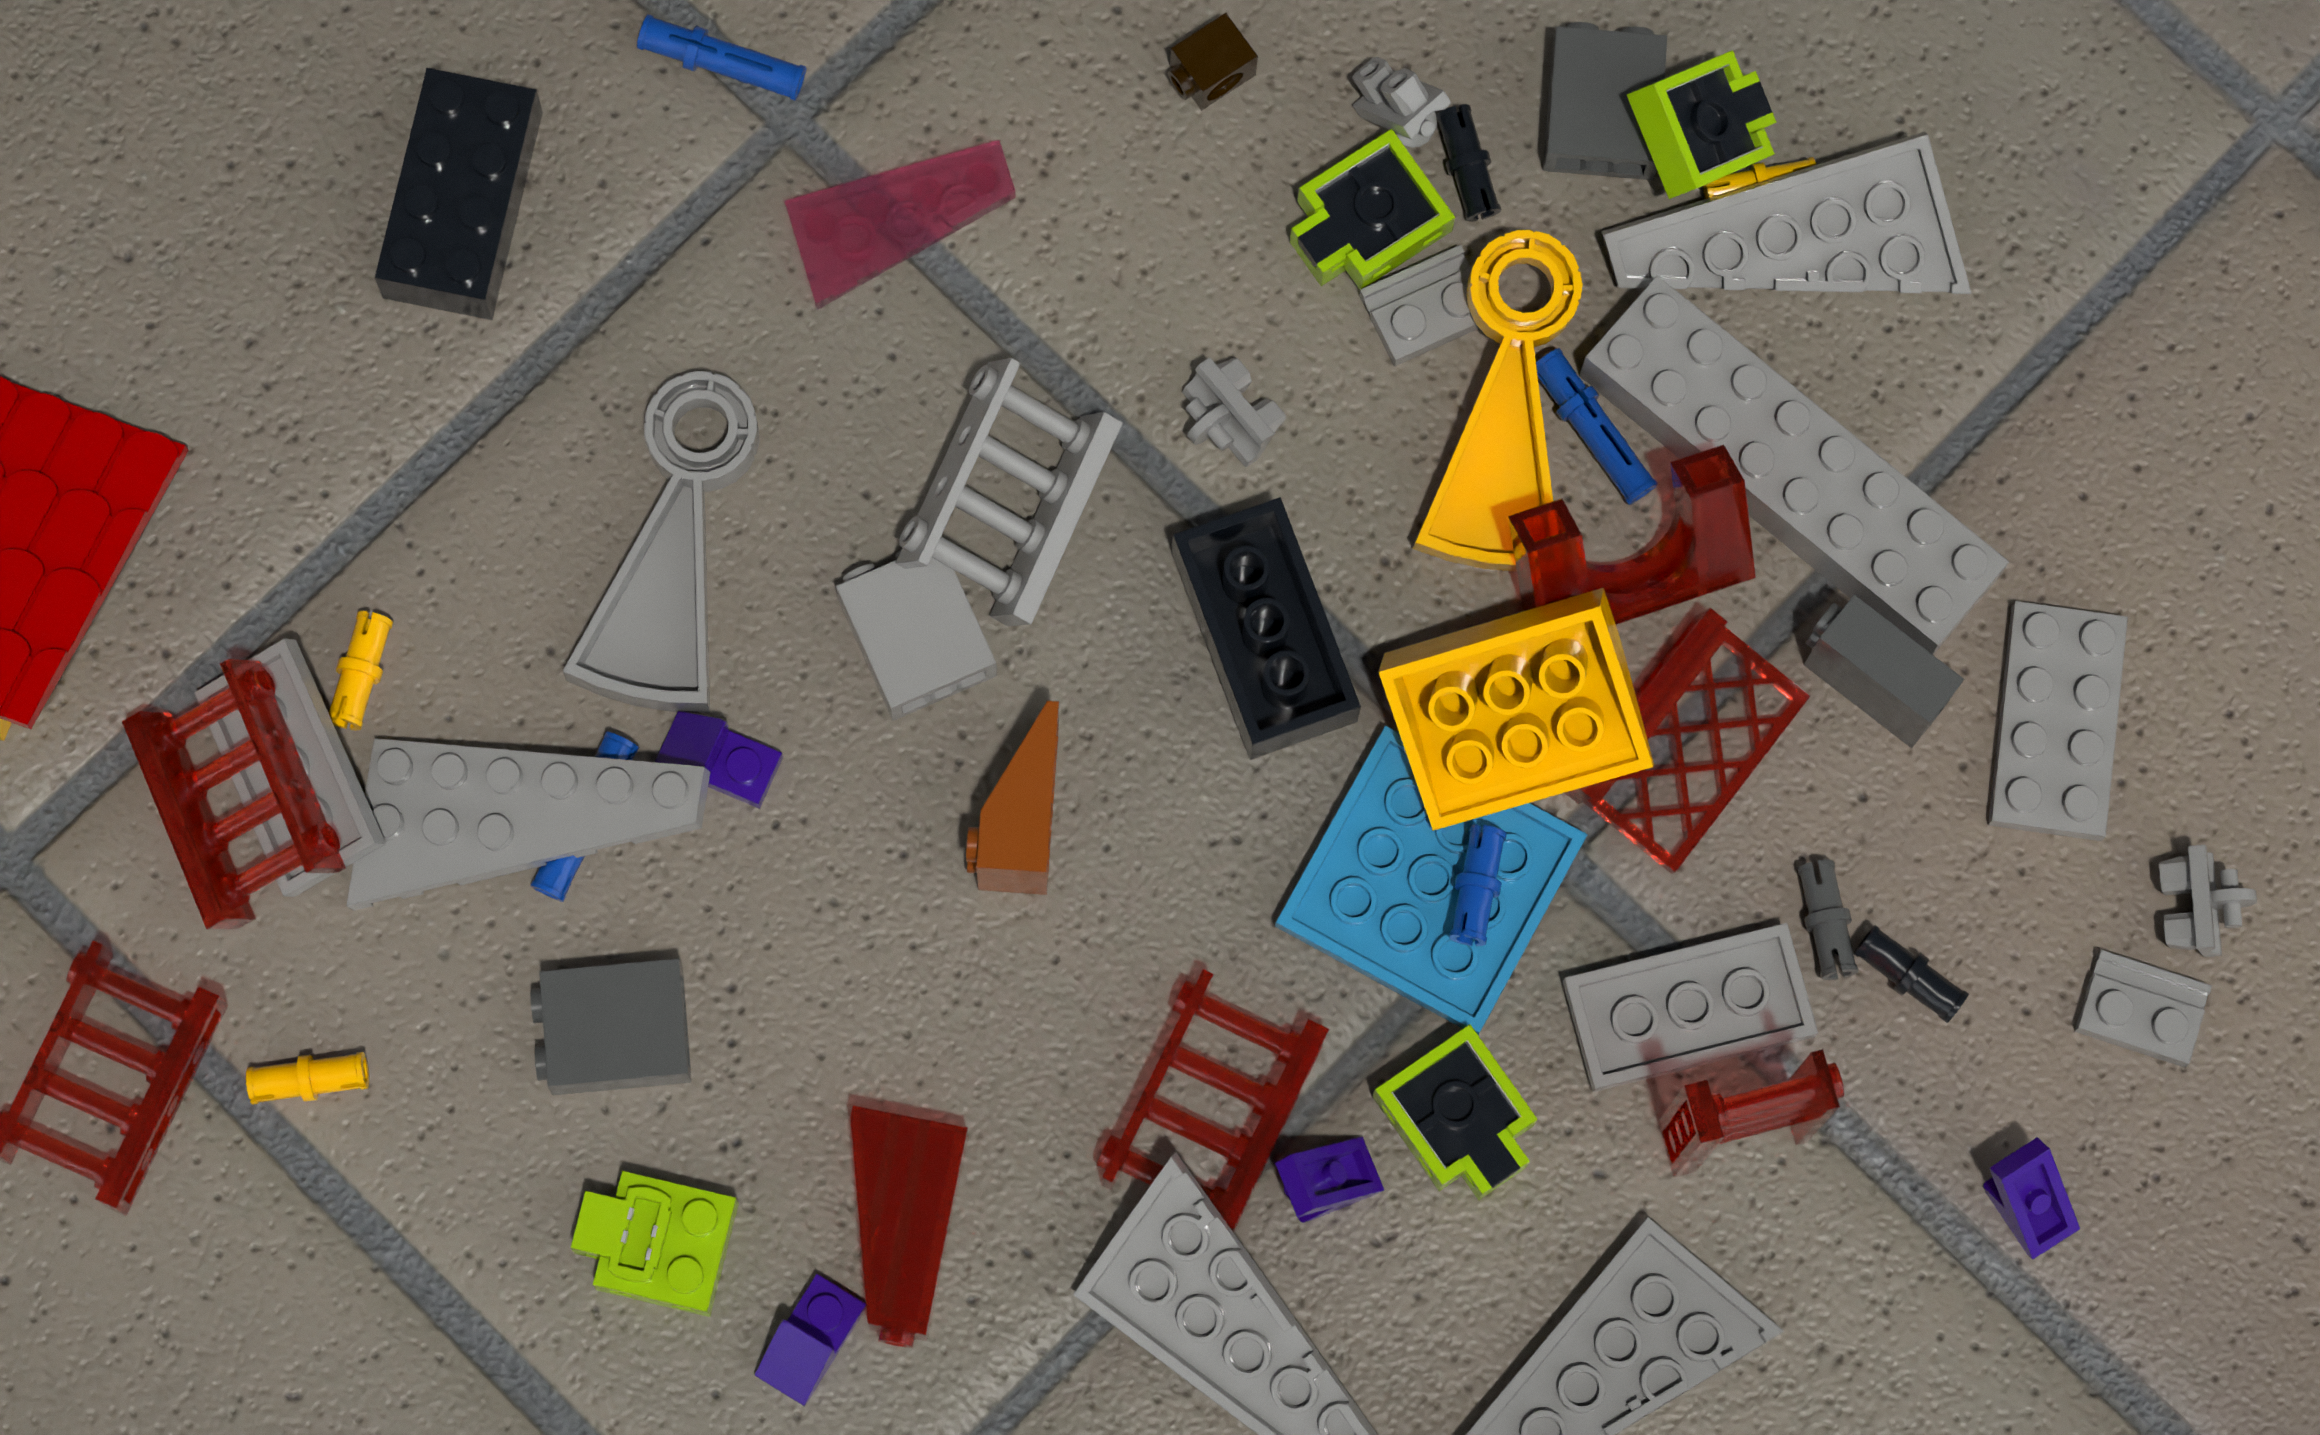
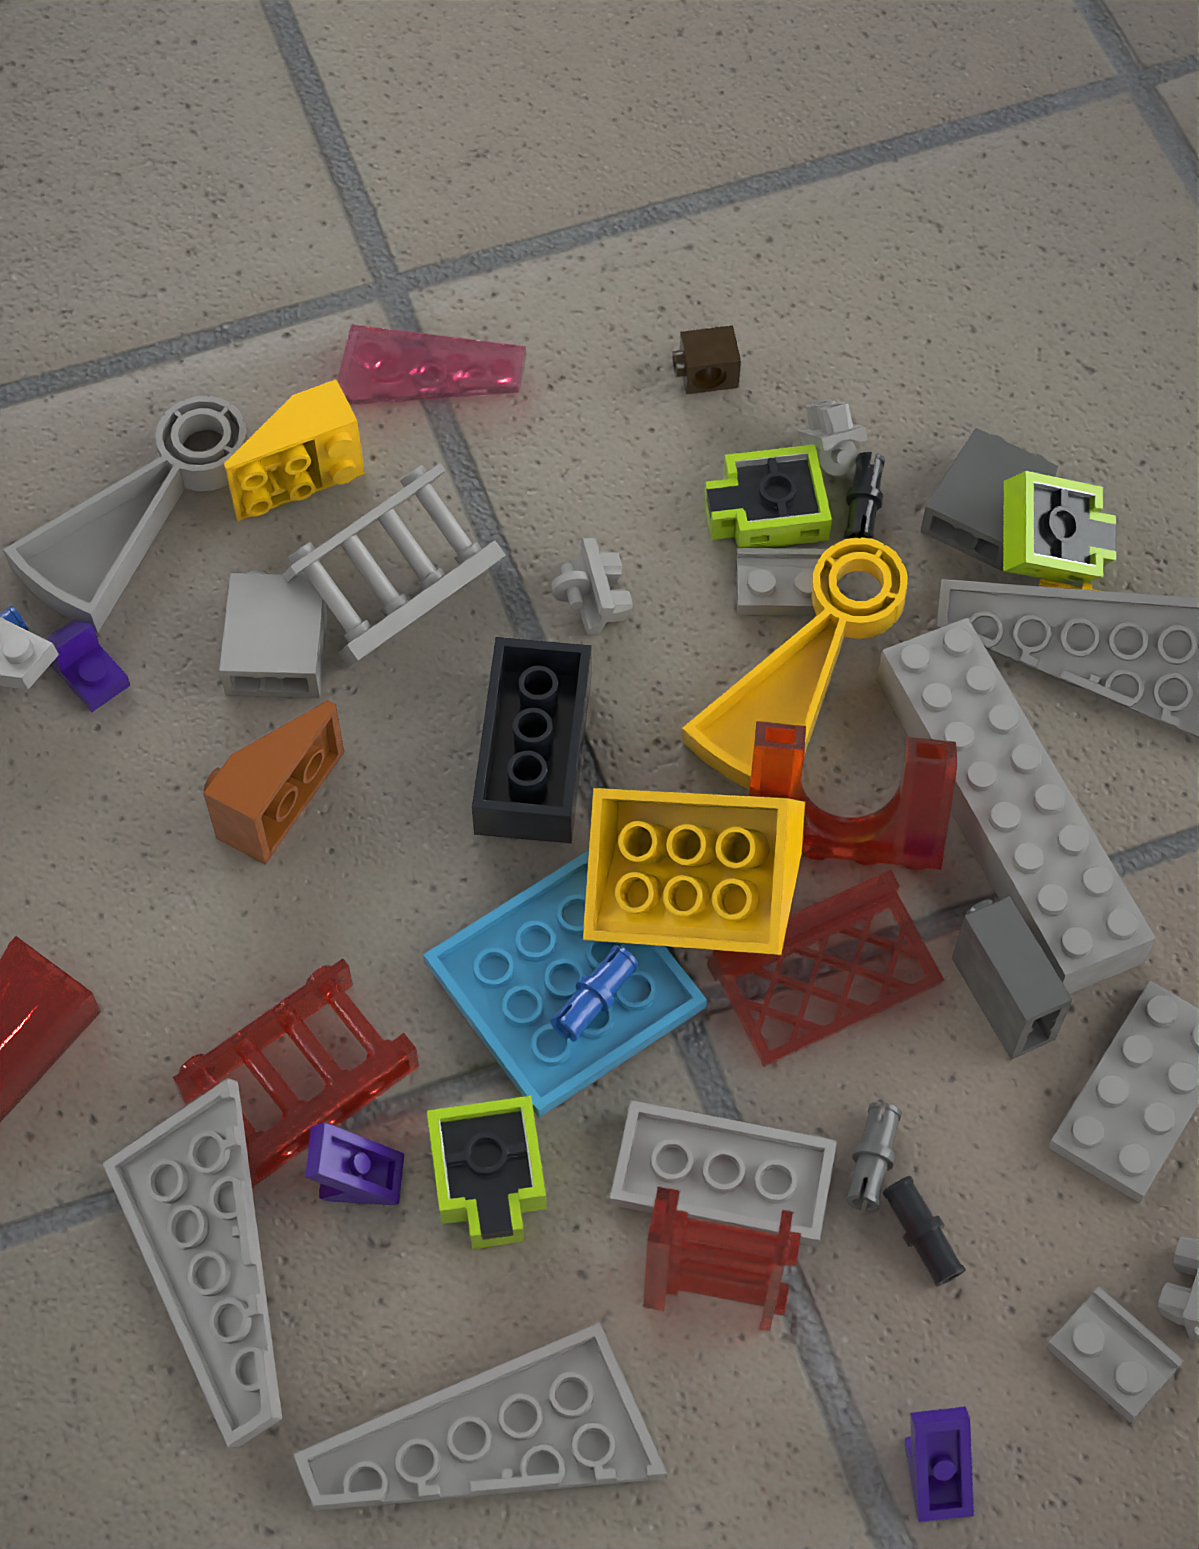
camera: 30 degrees right, 15 degrees down
(459, 194) = (131, 233): black brick -> none
(712, 54) = (351, 216): blue pin -> none
(836, 381) = (296, 452): none -> yellow slope
(1588, 418) = (864, 695): blue pin -> none

